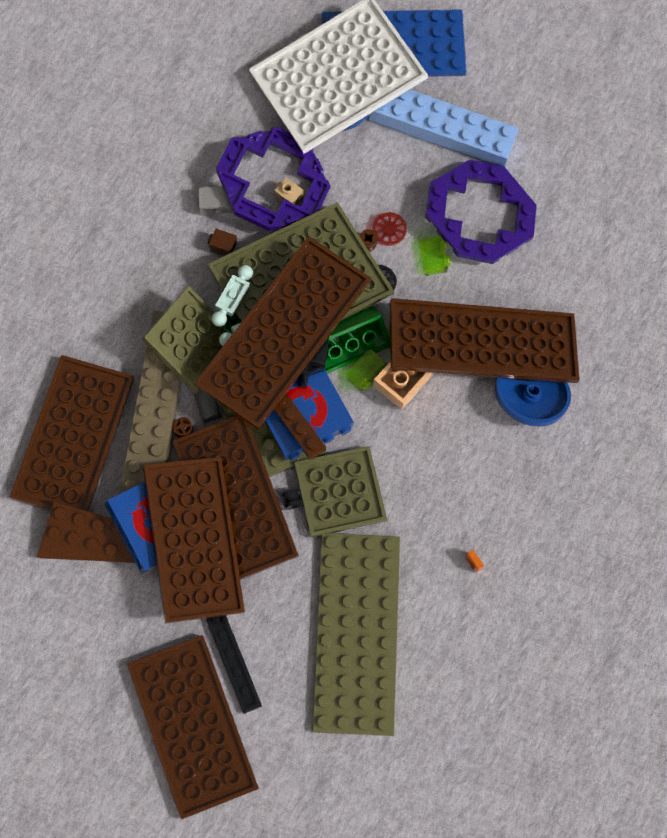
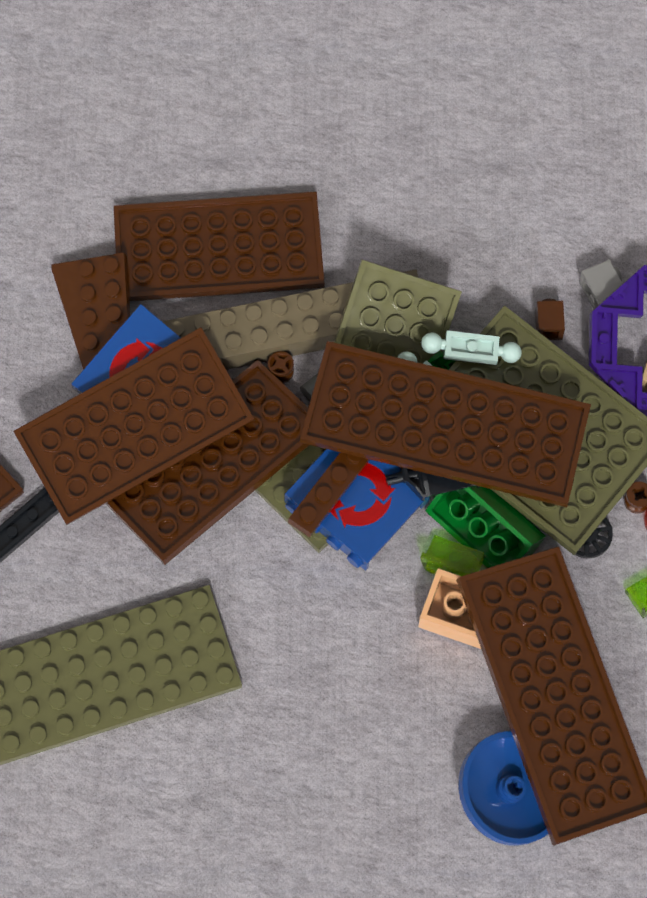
camera: 75 degrees right, 5 degrees down
(292, 499) = (238, 531): black wheel -> none
(340, 491) = (273, 588): olive plate -> none
(474, 561) = (244, 793): orange tile -> none

